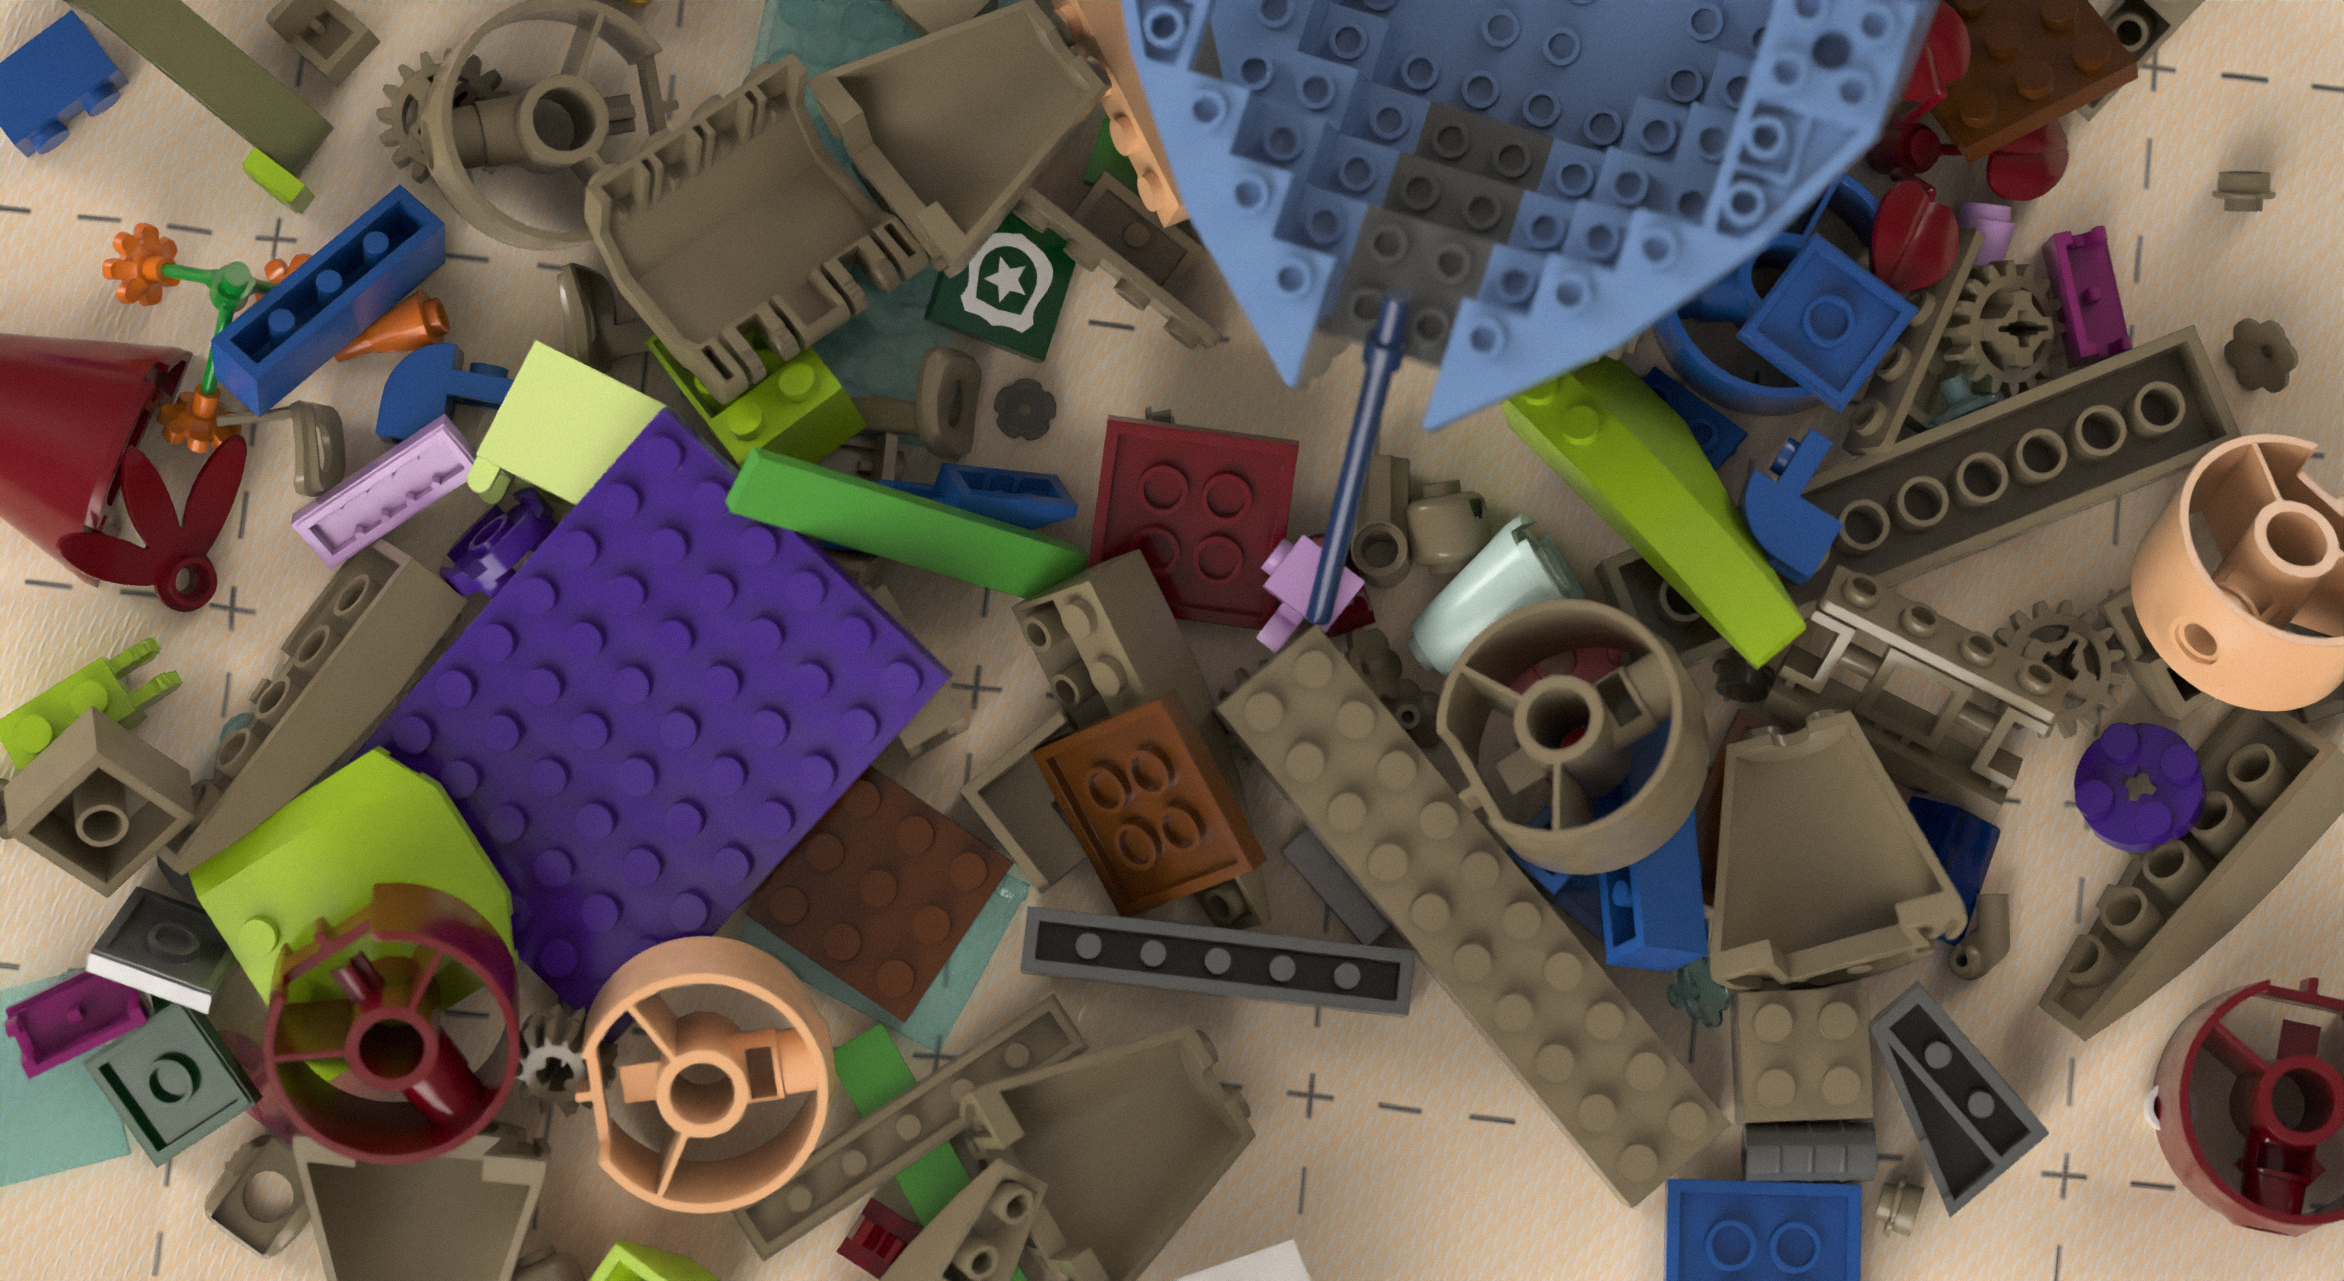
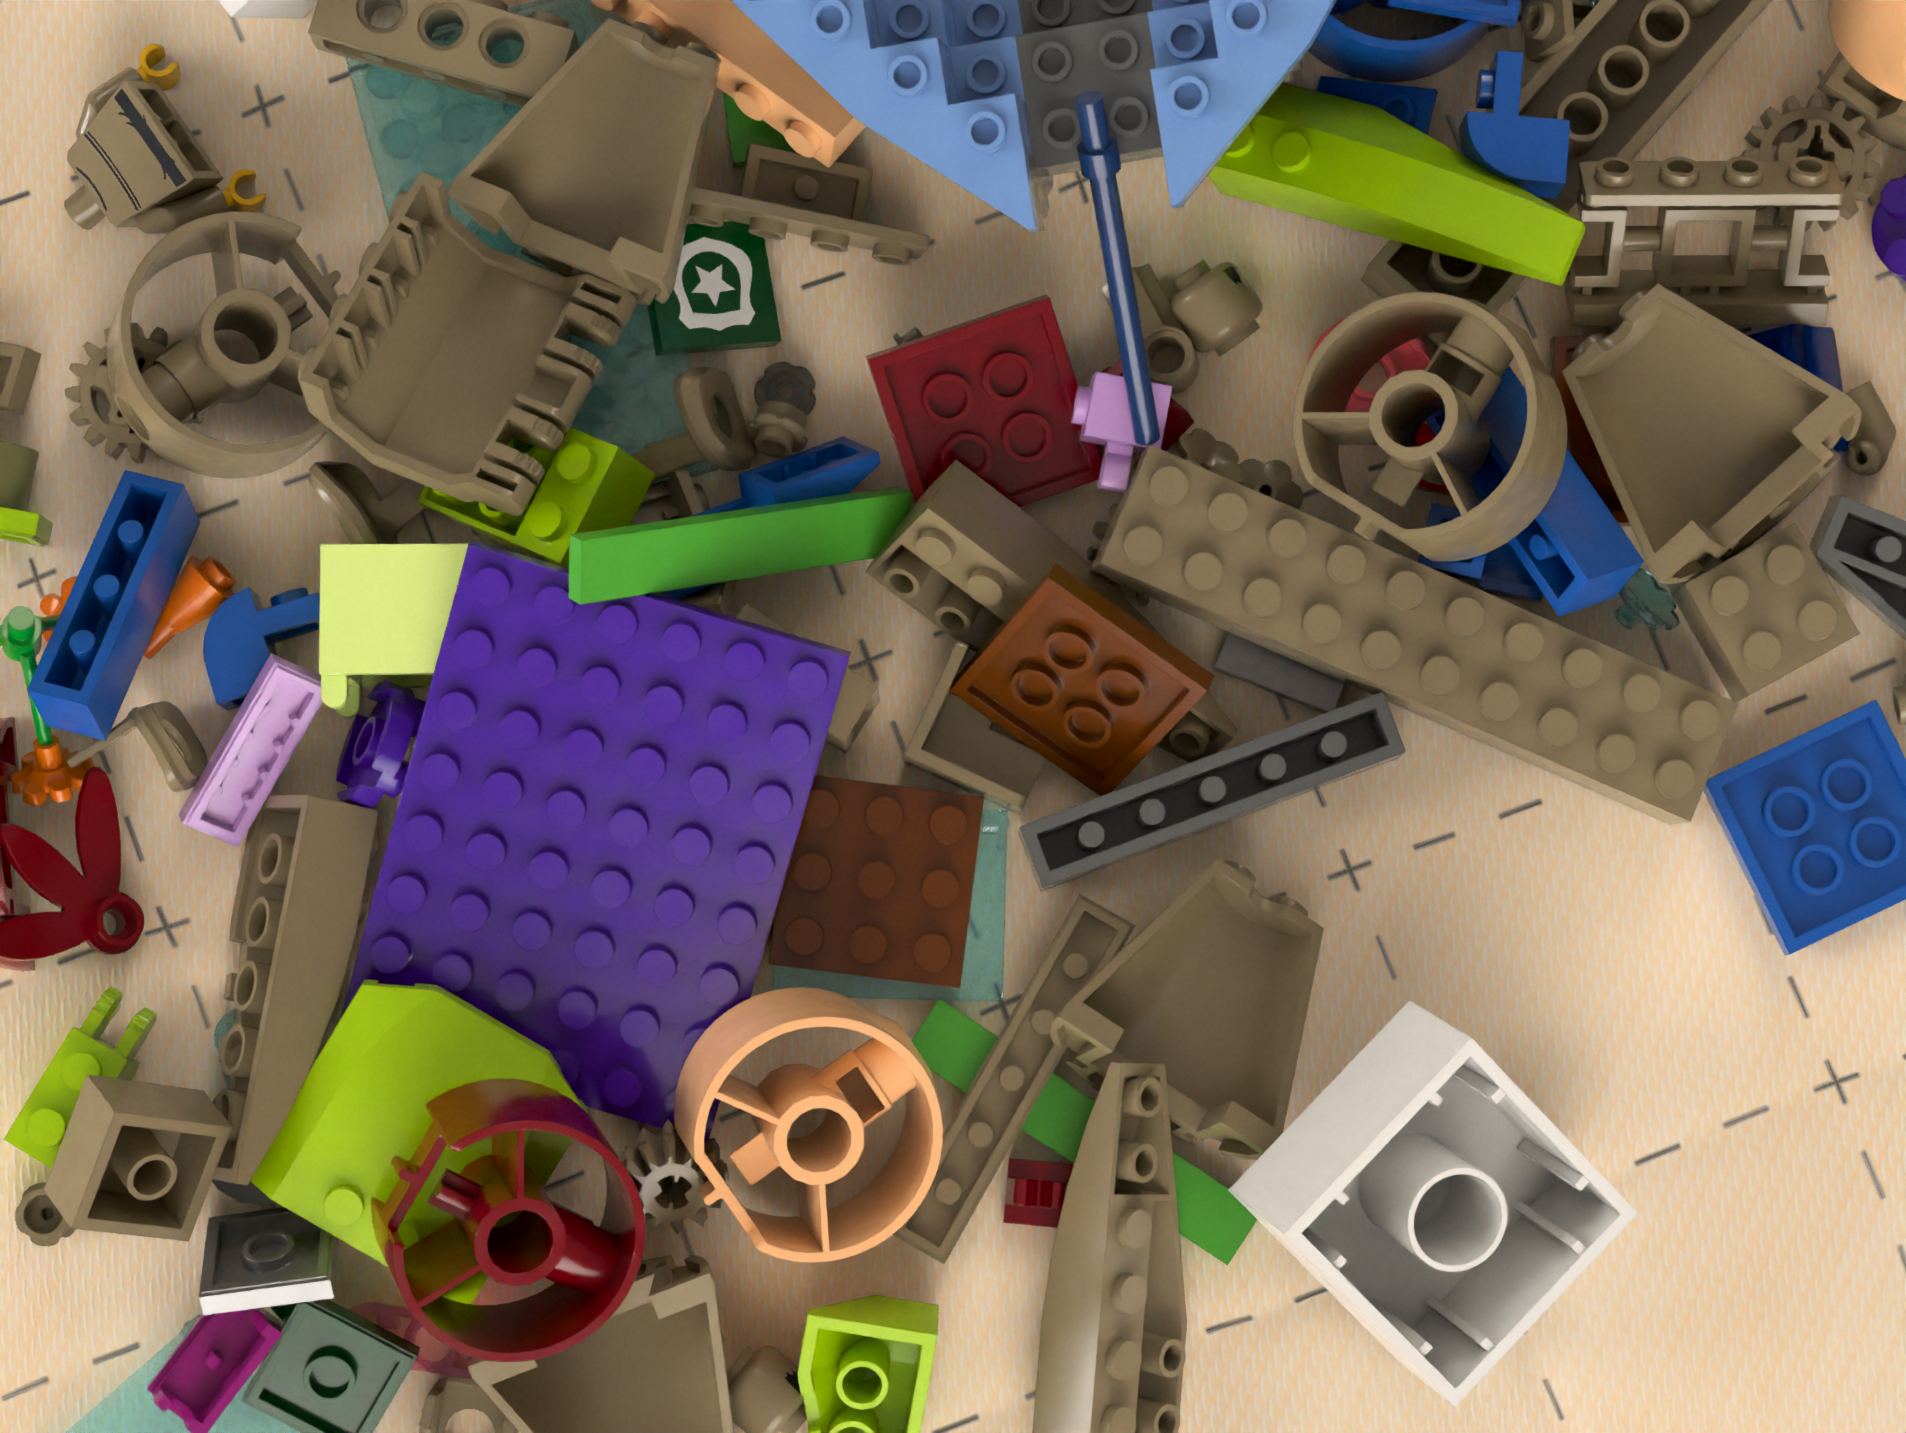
camera: 25 degrees left, 0 degrees up
(999, 440) = (778, 429): none -> dark tan plate
(1498, 580) = (1284, 335): light aqua cone -> none
(1740, 679) = (1541, 306): clear smoke plate -> none
(1809, 1152) = (1814, 694): dark grey axle -> none

